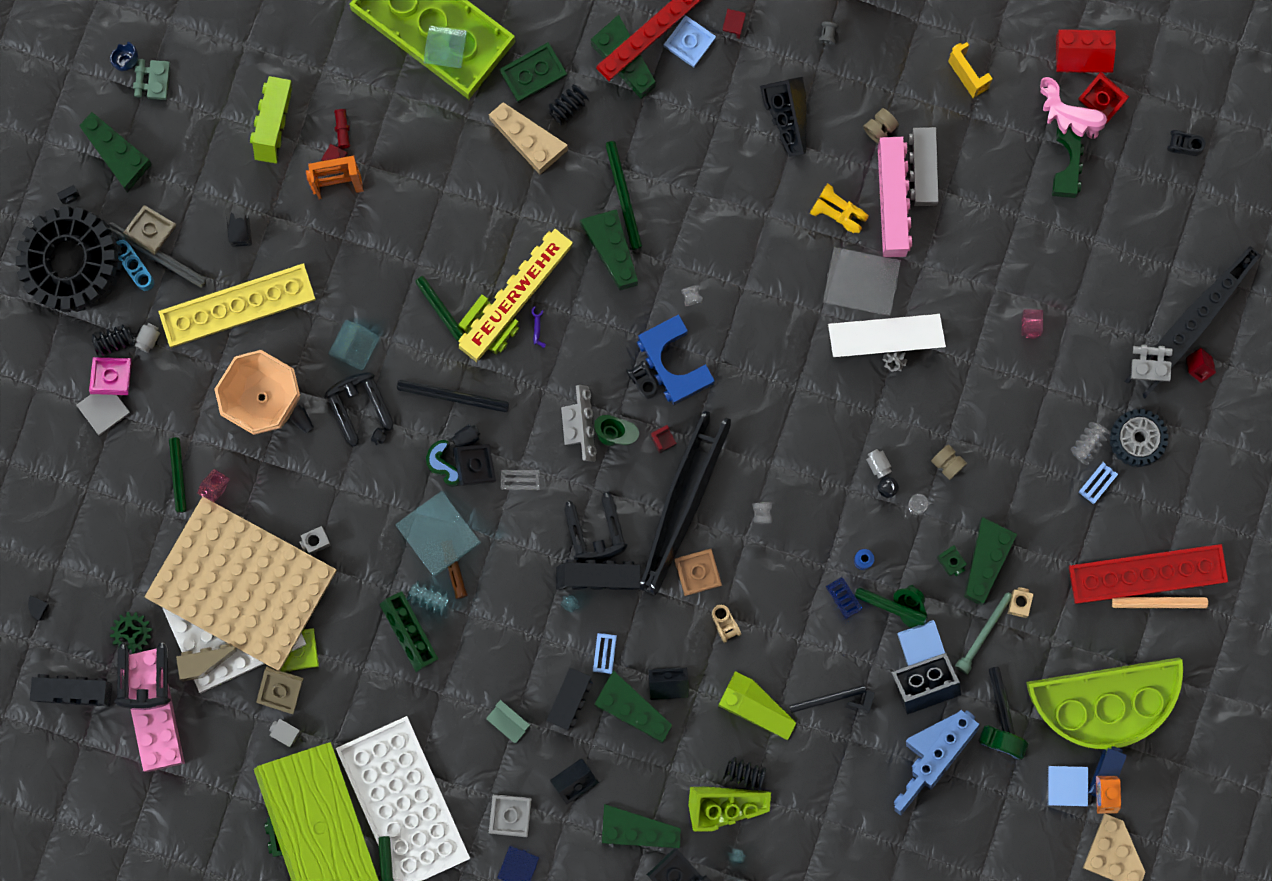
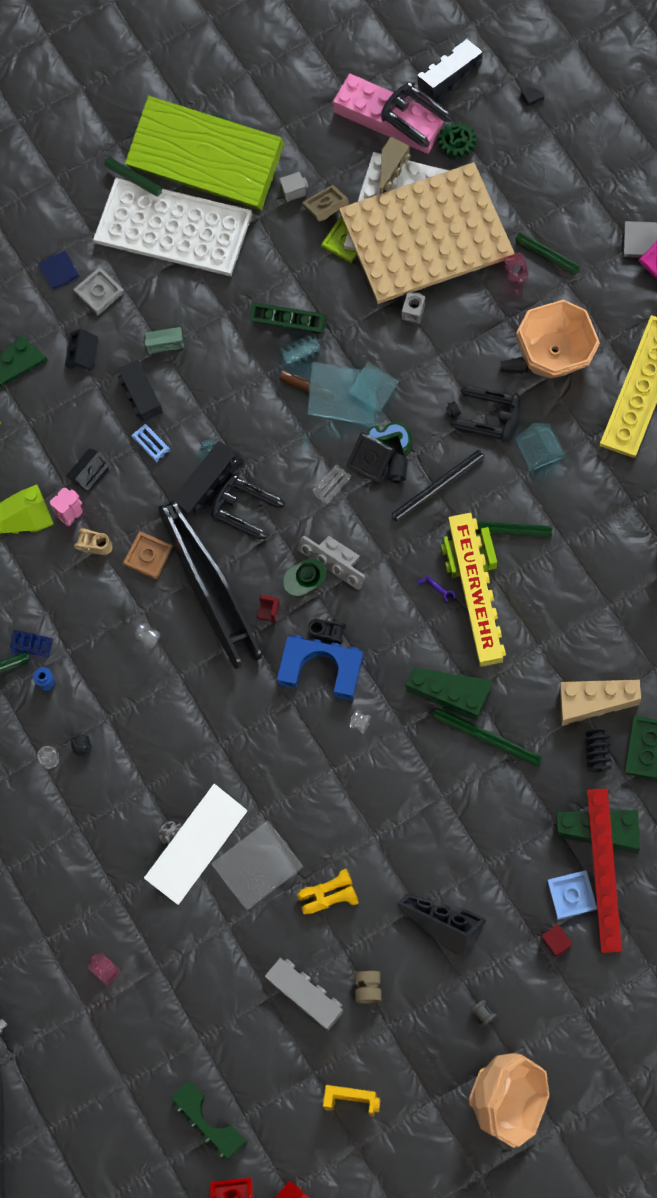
camera: 140 degrees right, 10 degrees down
(411, 513) = (373, 386): none -> clear light blue slope
(628, 706) = (91, 427): dark green wedge -> none
(715, 665) = (66, 506): none -> bright pink brick
(879, 463) = (104, 754): light grey brick -> none
(893, 197) = (299, 942): bright pink brick -> none
(949, 462) = (56, 806): dark tan wheel -> none
(1068, 116) = (241, 1147): bright pink animal -> none

